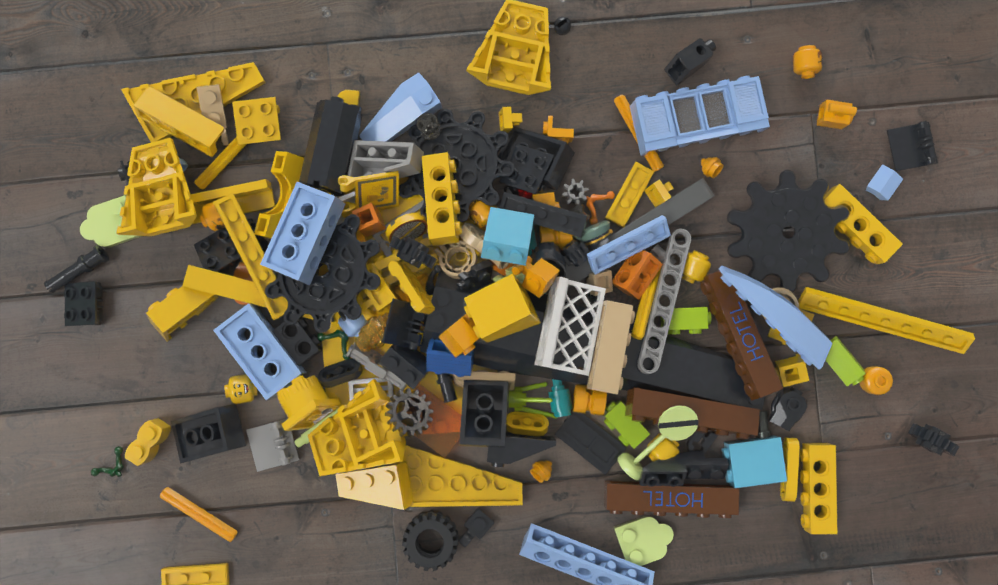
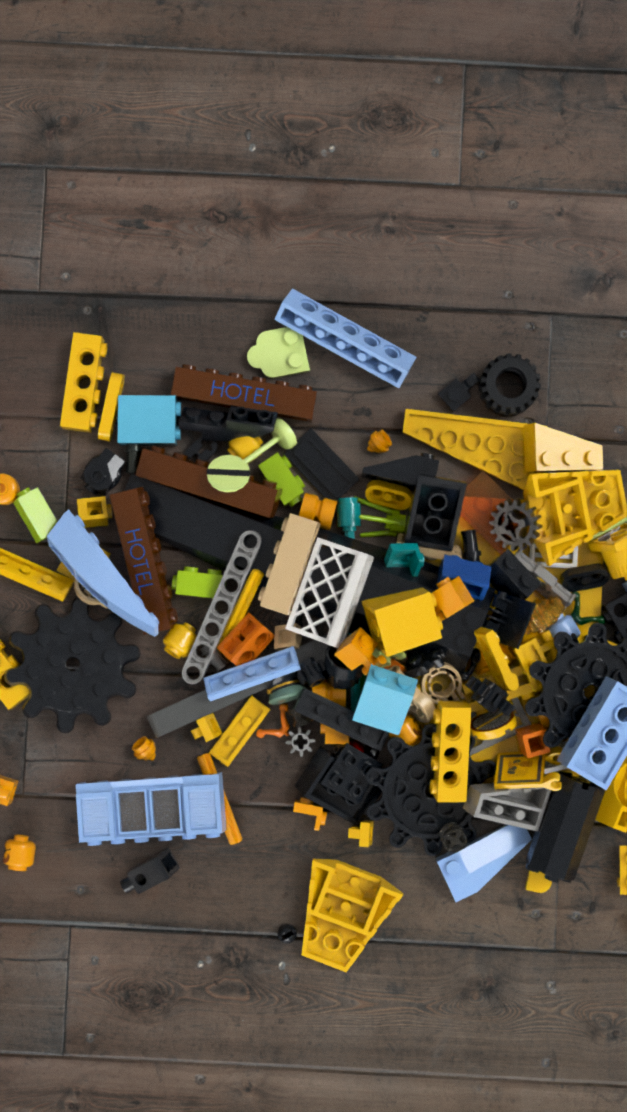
camera: 170 degrees left, 0 degrees up
(506, 369) = (405, 556): none -> teal bracket

